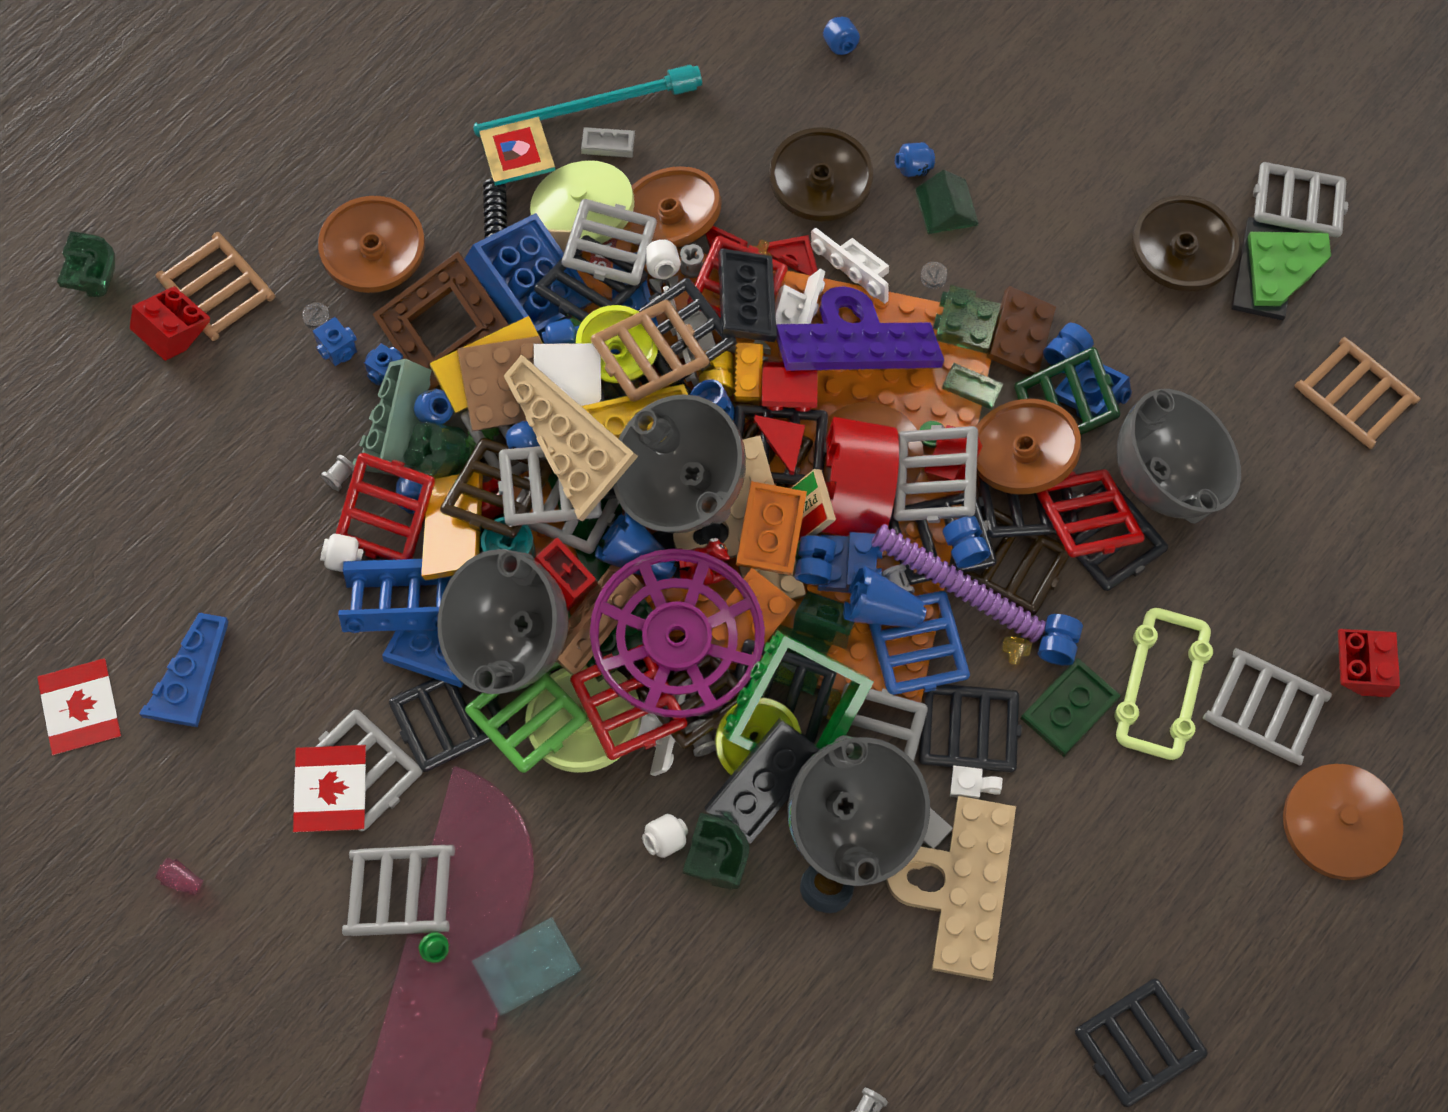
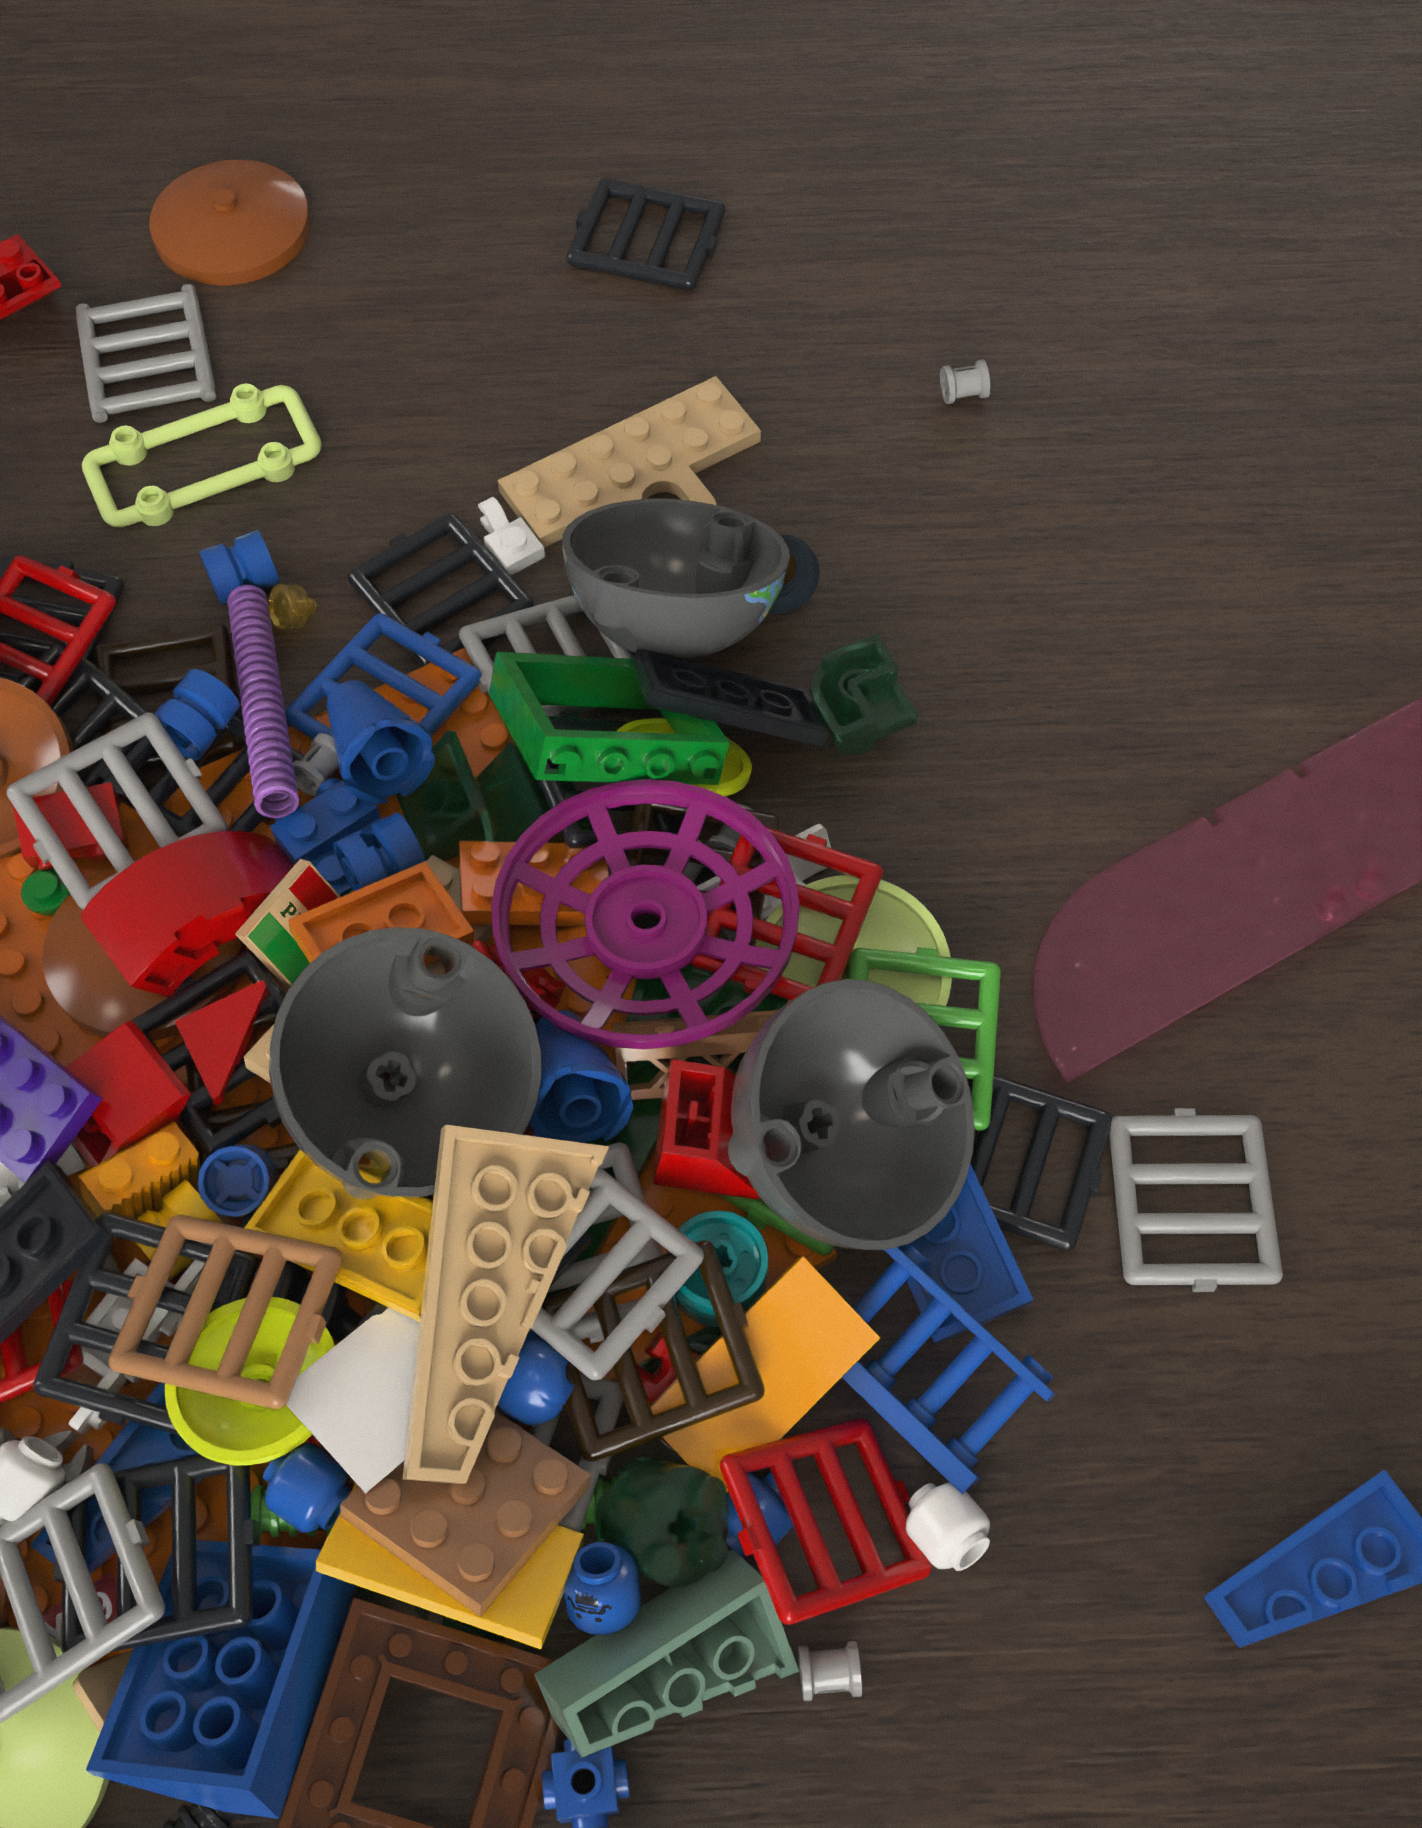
camera: 130 degrees left, 5 degrees down
(329, 788) = (1258, 1203): sticker -> none
(411, 925) = (1253, 1051): light grey bar -> none
(434, 947) = (1293, 885): green plate -> none
(526, 966) = (1193, 791): clear light blue plate -> none
(665, 835) = (895, 772): white head -> none
(1070, 707) = (320, 516): dark green tile -> none

